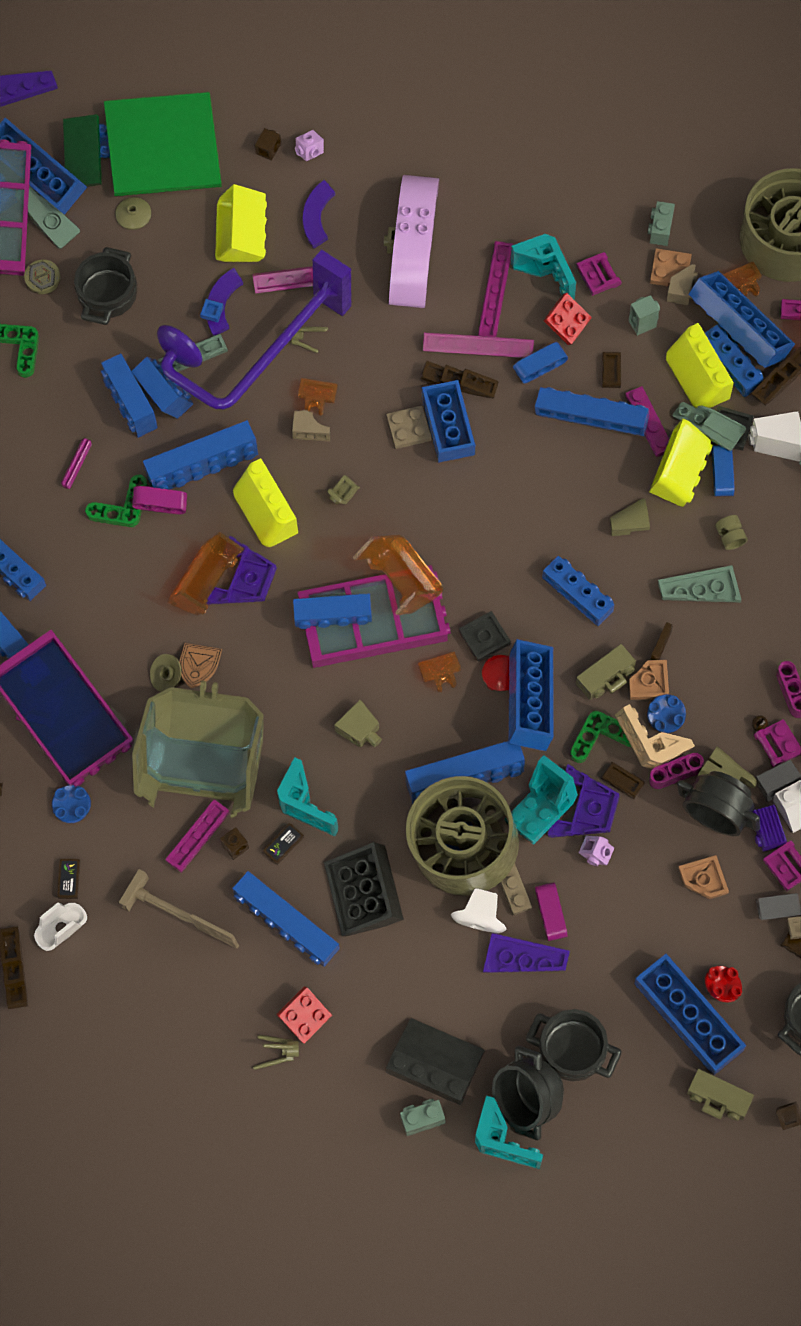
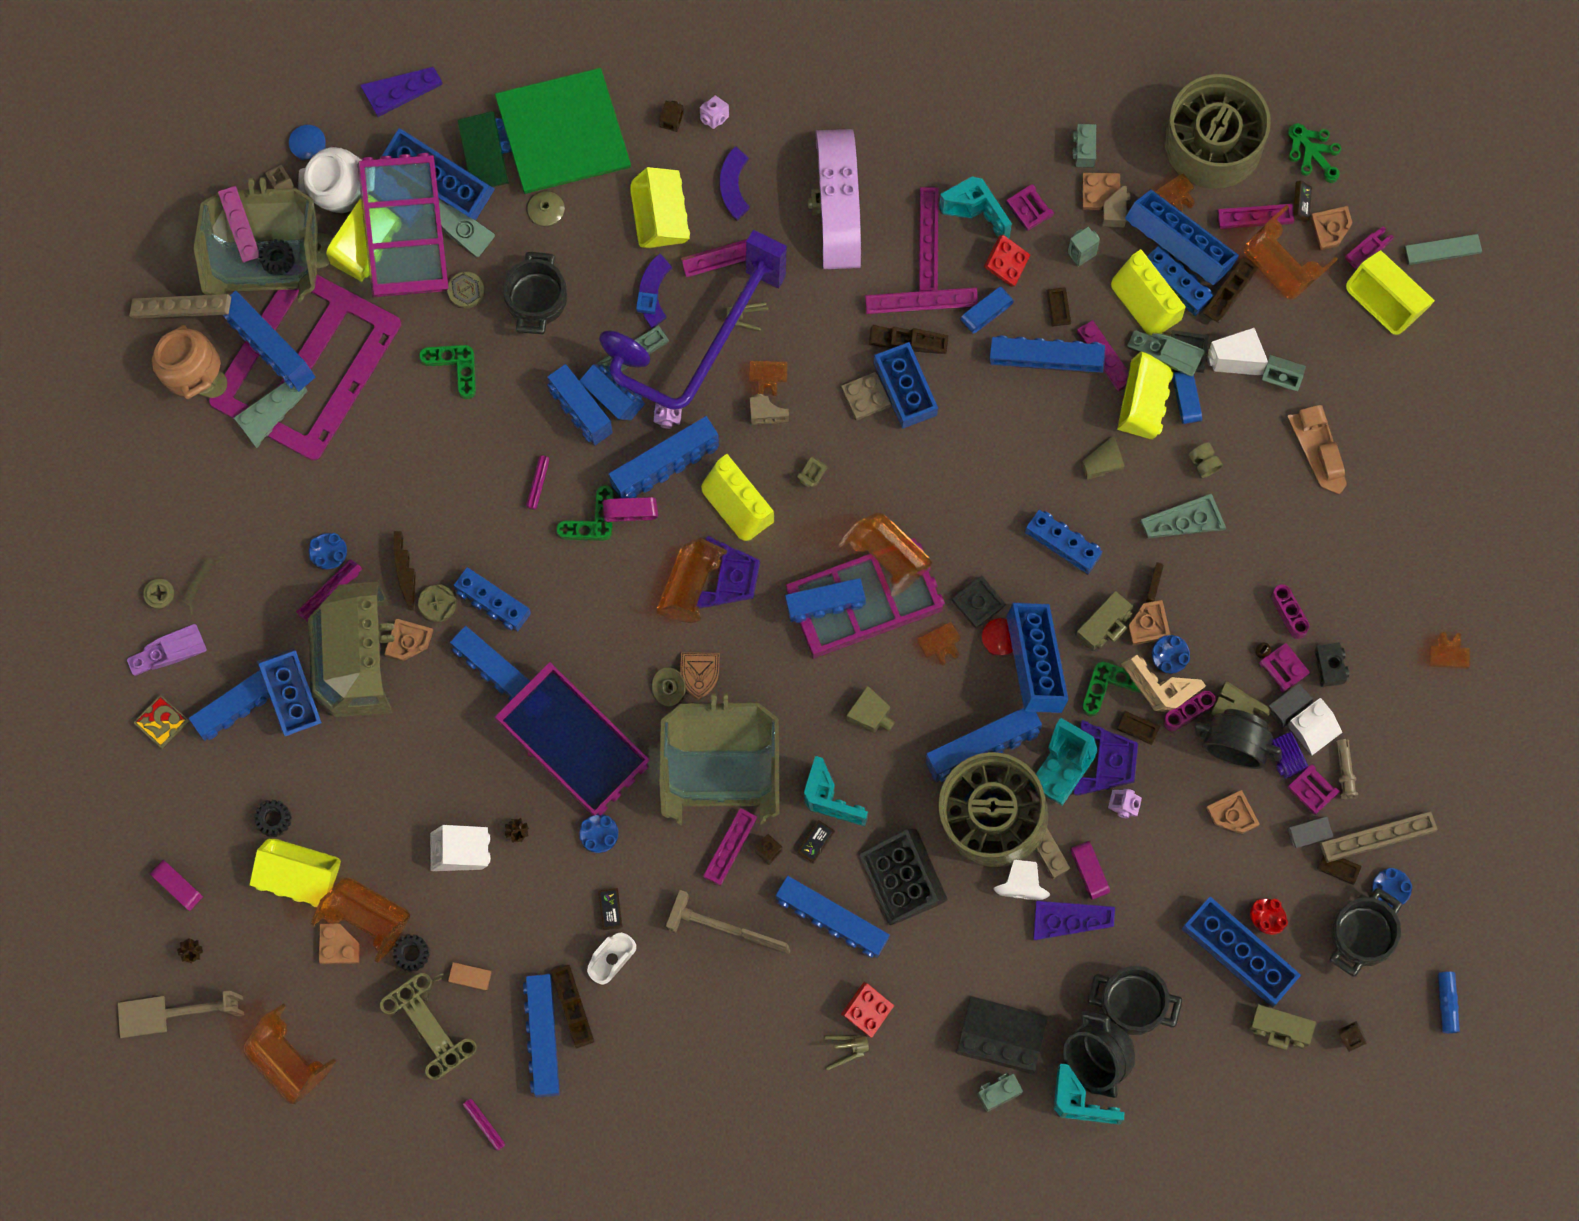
camera: 10 degrees left, 5 degrees up
(212, 418) = (666, 417): none -> lavender brick

